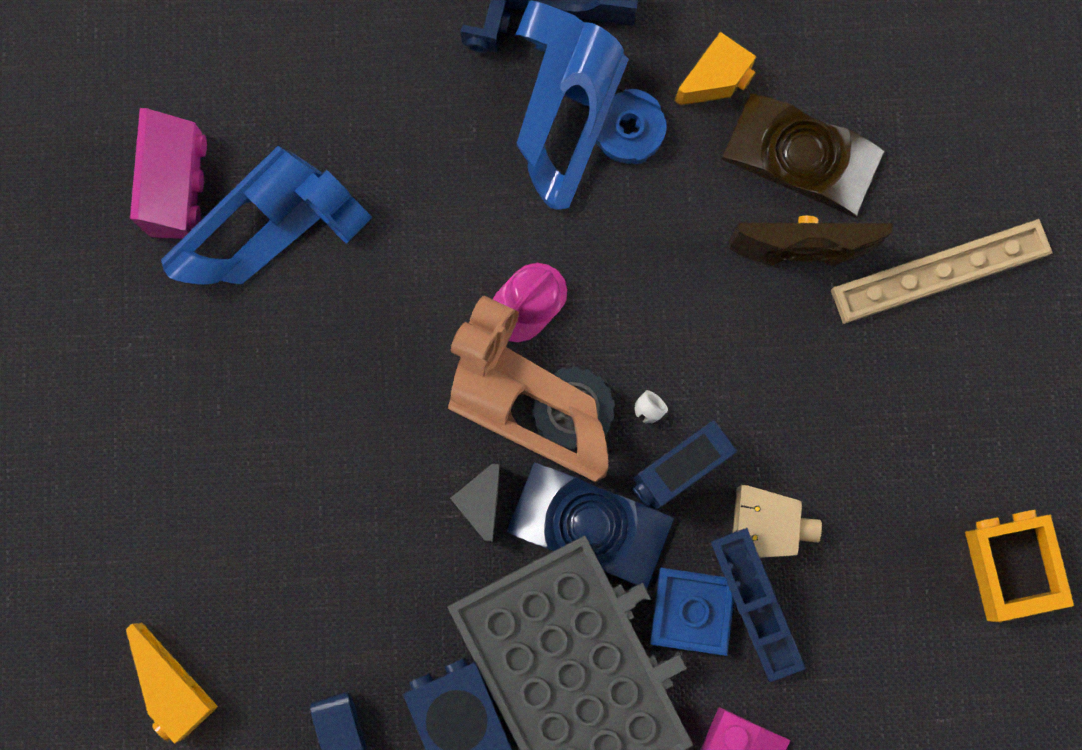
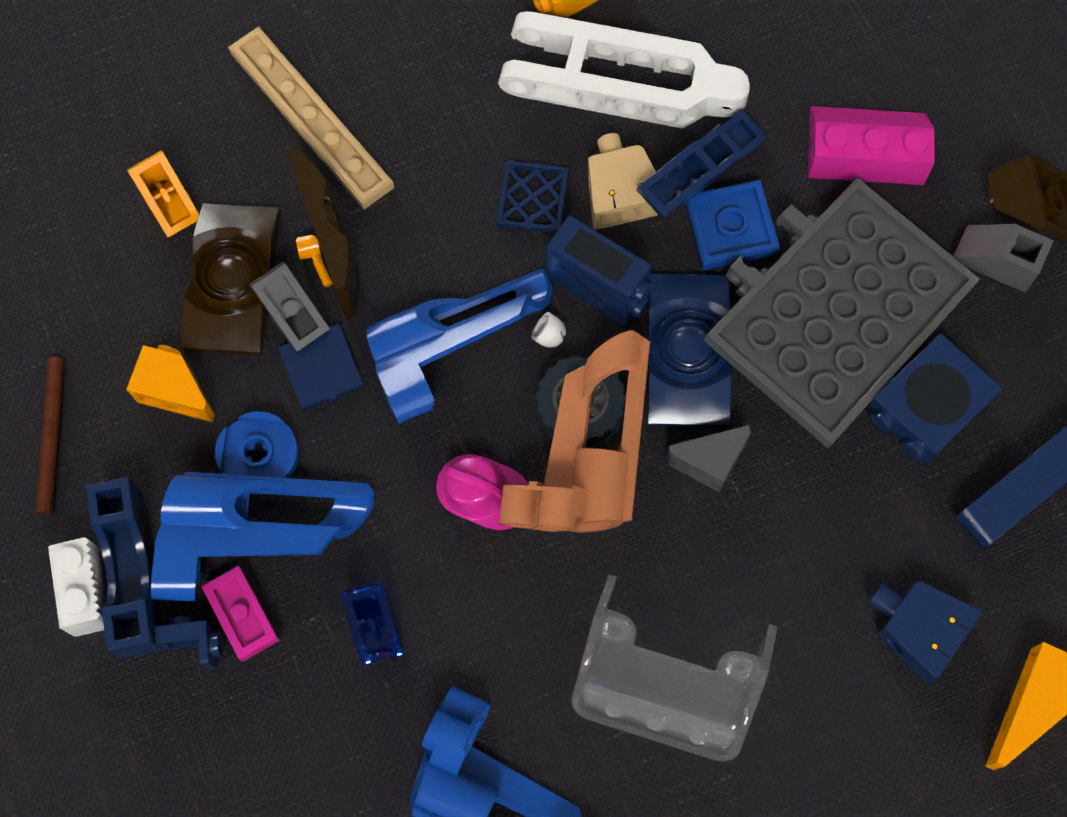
camera: 105 degrees left, 10 degrees down
(267, 619) = (923, 626): none -> dark blue torso
(300, 384) = (666, 696): none -> clear windscreen
(447, 171) = (372, 622): none -> clear blue slope
(496, 72) = (240, 613): none -> dark pink plate
(678, 291) = (417, 337): none -> blue panel
(691, 204) = (321, 369): none -> dark blue piece
(750, 190) = (289, 306): none -> dark grey slope
(815, 457) = (529, 225): none -> dark blue window
(836, 647) = (711, 87): none -> white piece
(901, 117) = (164, 193): none -> light orange slope

